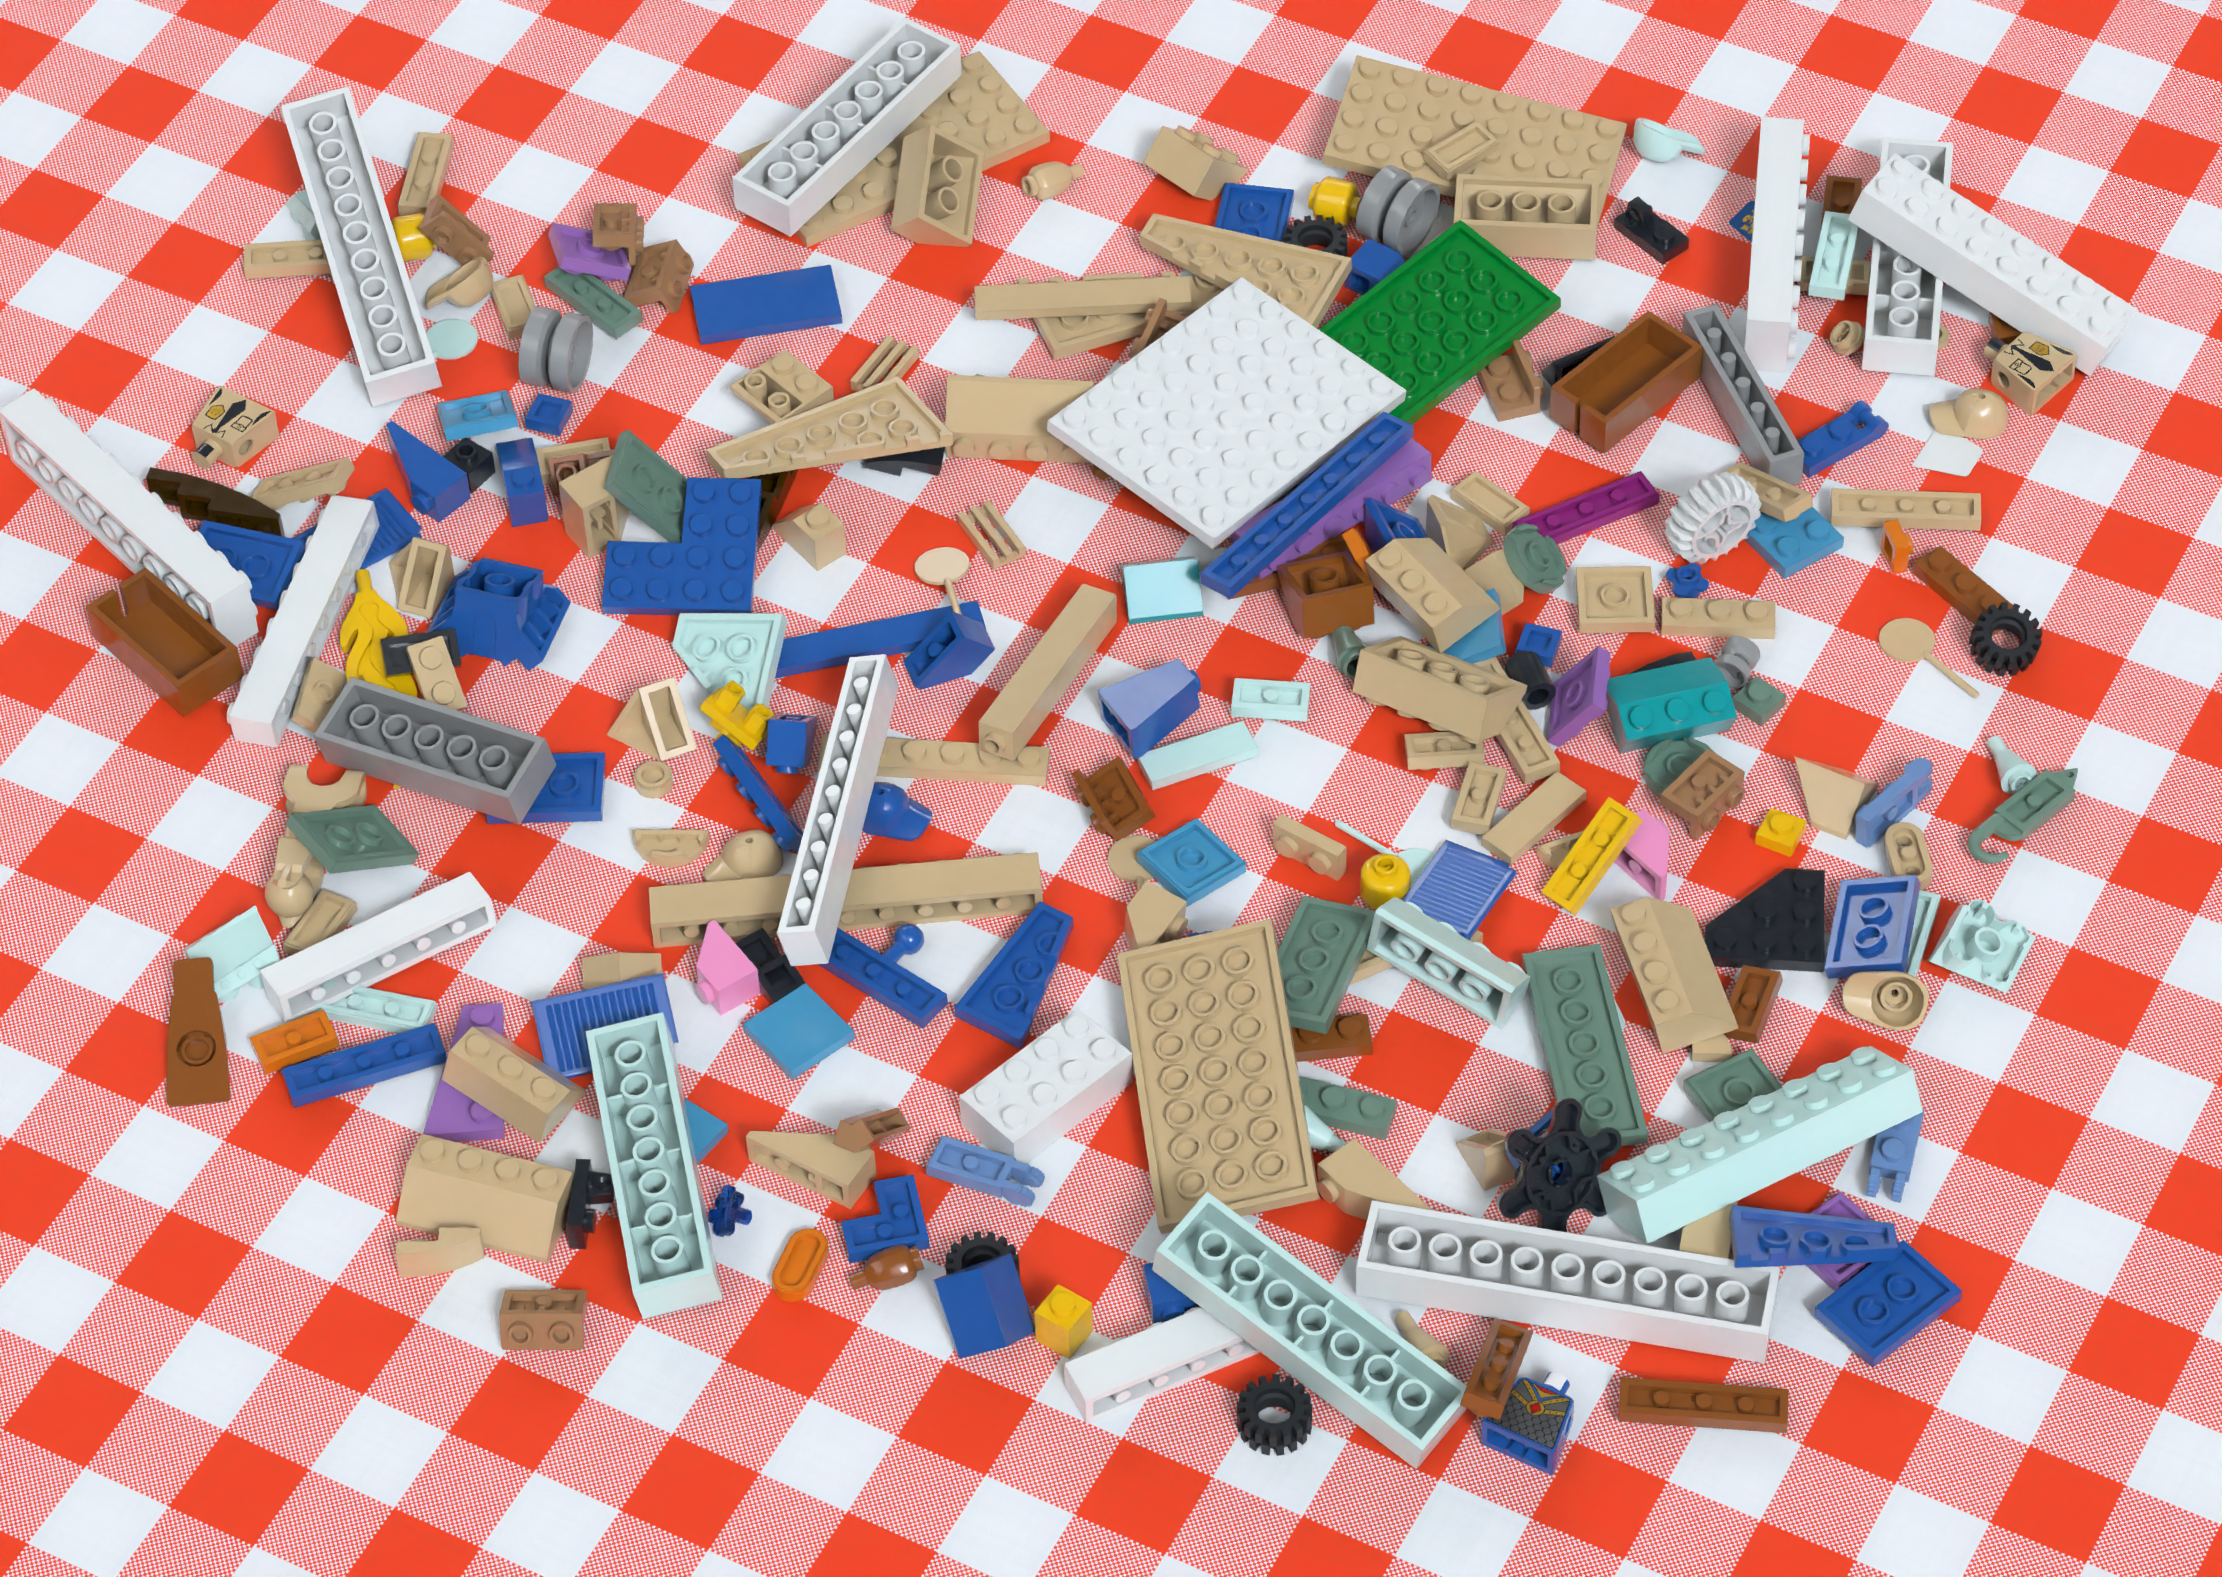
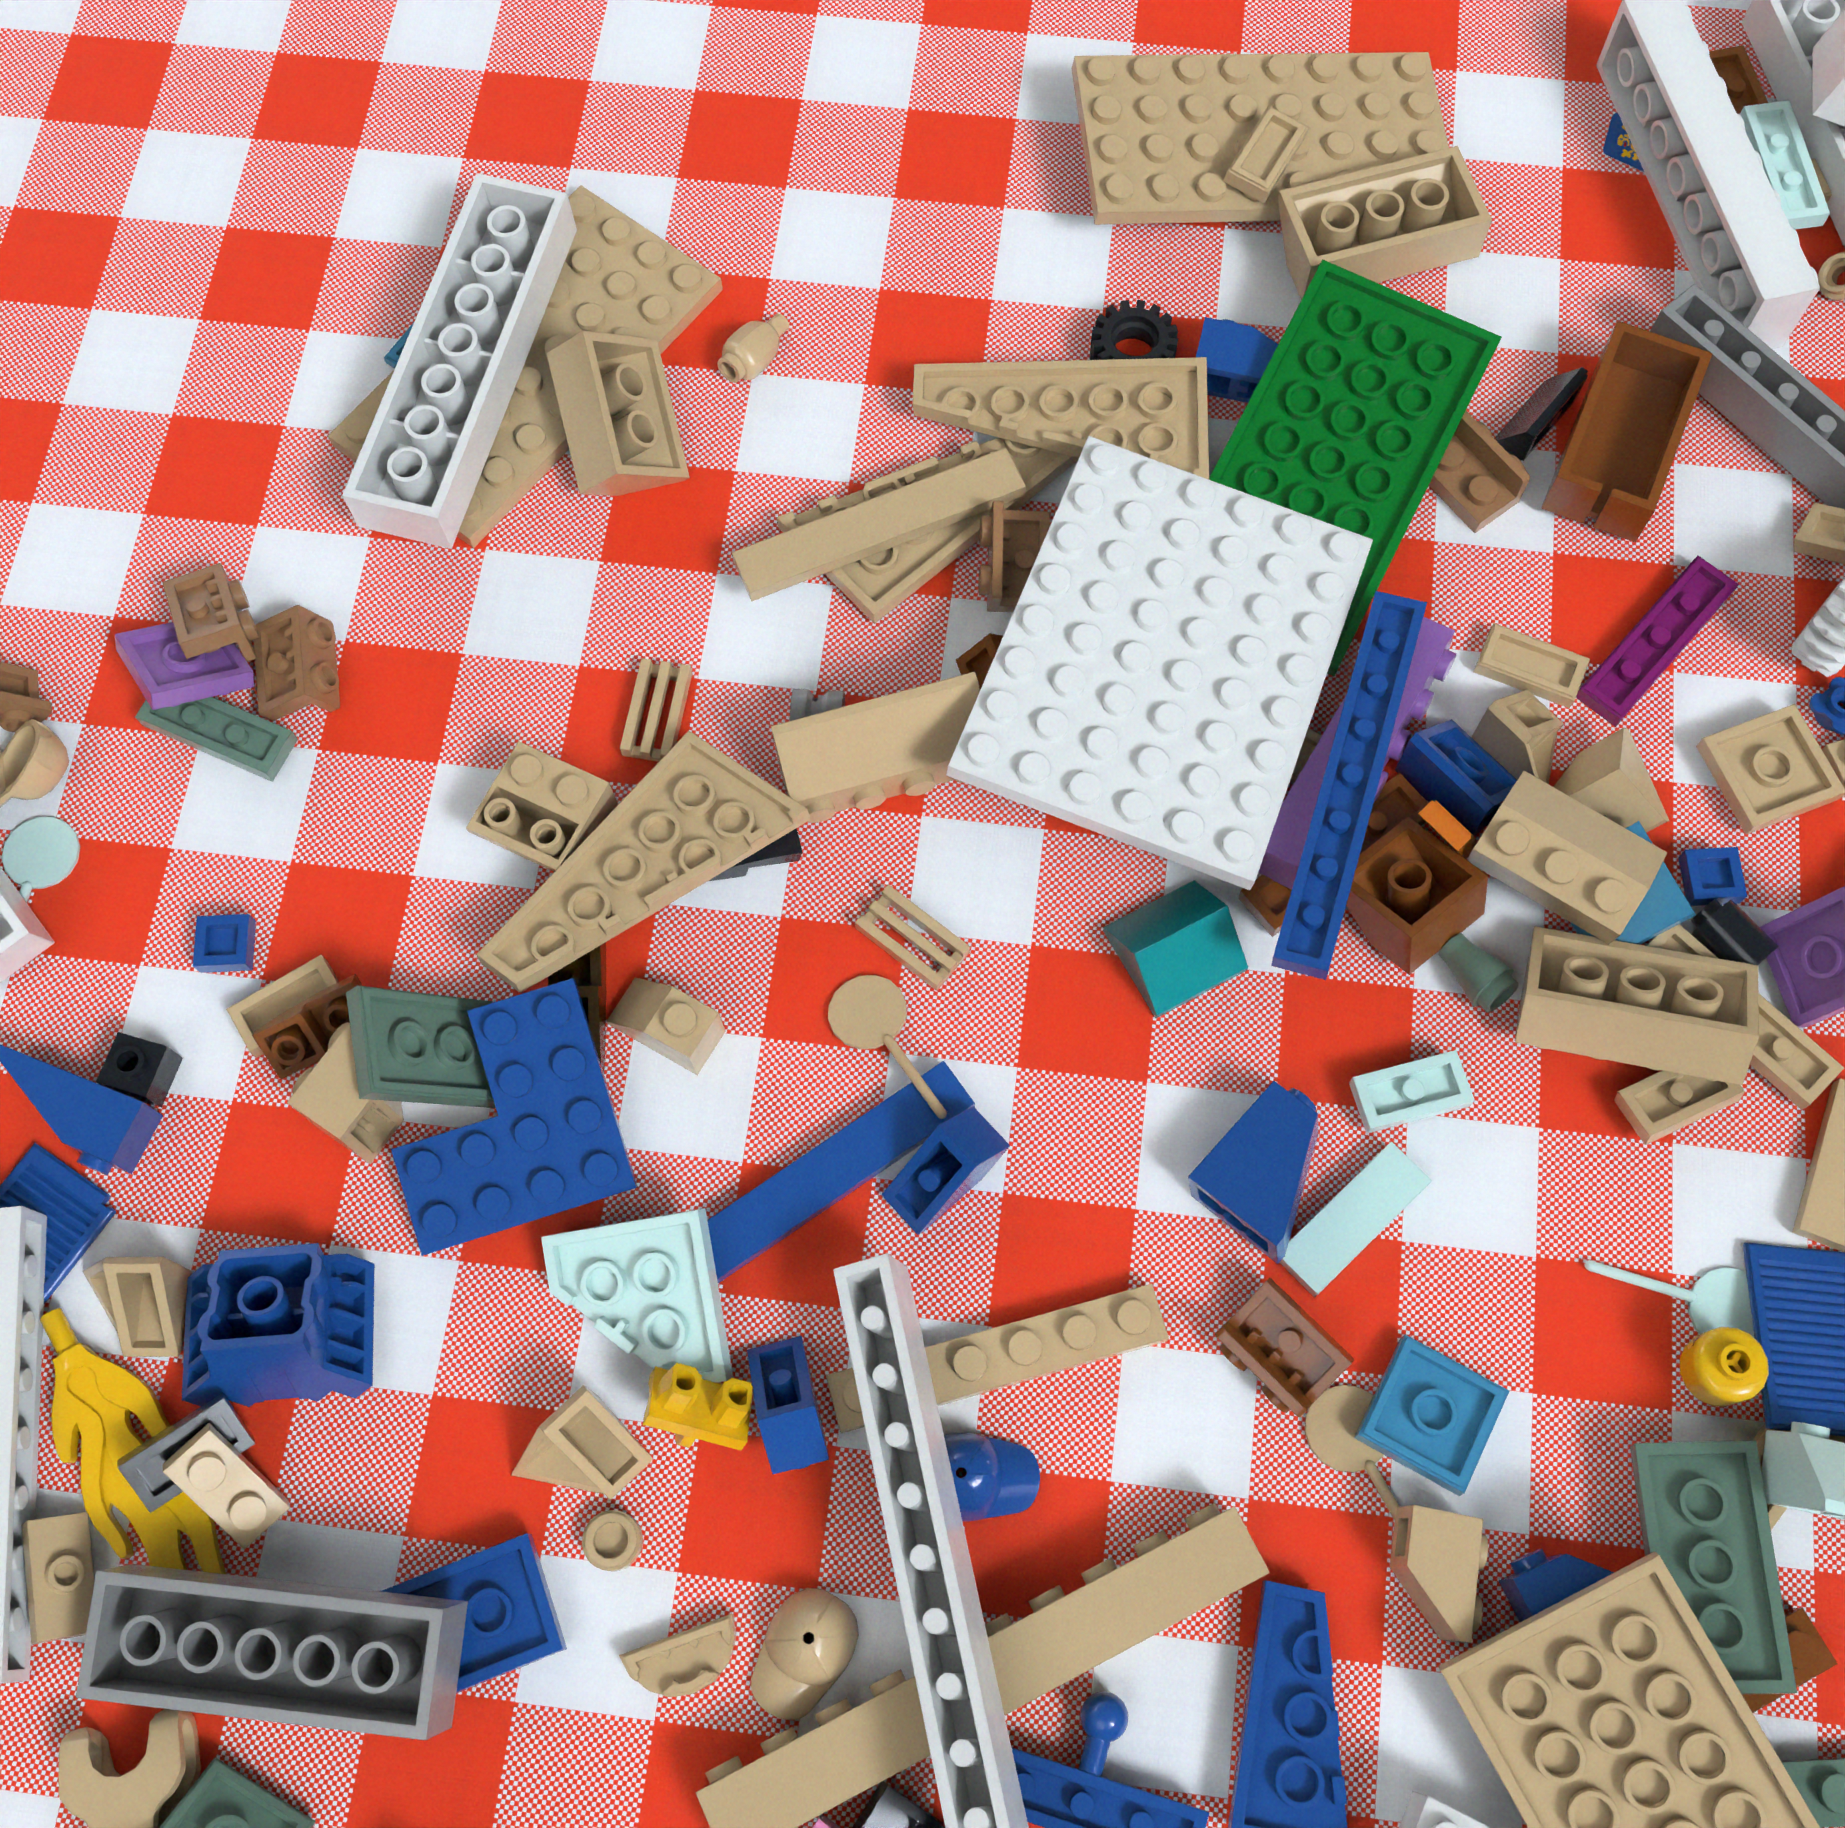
camera: 20 degrees left, 20 degrees up
(477, 415) = (122, 984): dark azure tile -> none
(513, 304) = (113, 772): tan tile -> none
(522, 482) = (224, 1069): blue slope -> none
(555, 349) = (194, 844): light grey wheel -> none
(754, 787) = (791, 1529): blue plate -> none
(766, 304) = (455, 659): blue tile -> none
(1047, 672) = (1102, 1170): tan brick -> none
(1194, 162) = (926, 269): tan slope -> none
(1255, 210) = (1031, 319): blue tile -> none
(1309, 847) = (1562, 1333): tan plate -> none
(1335, 200) = (1130, 272): yellow head -> none
(1398, 210) = (1224, 264): light grey wheel -> none
(1478, 798) = (1763, 1163): tan plate -> none
(1534, 558) = (1650, 745): sand green tile -> none
(1650, 231) = (1526, 196): black hinge -> none
(1661, 142) = (1482, 65): light aqua cap -> none

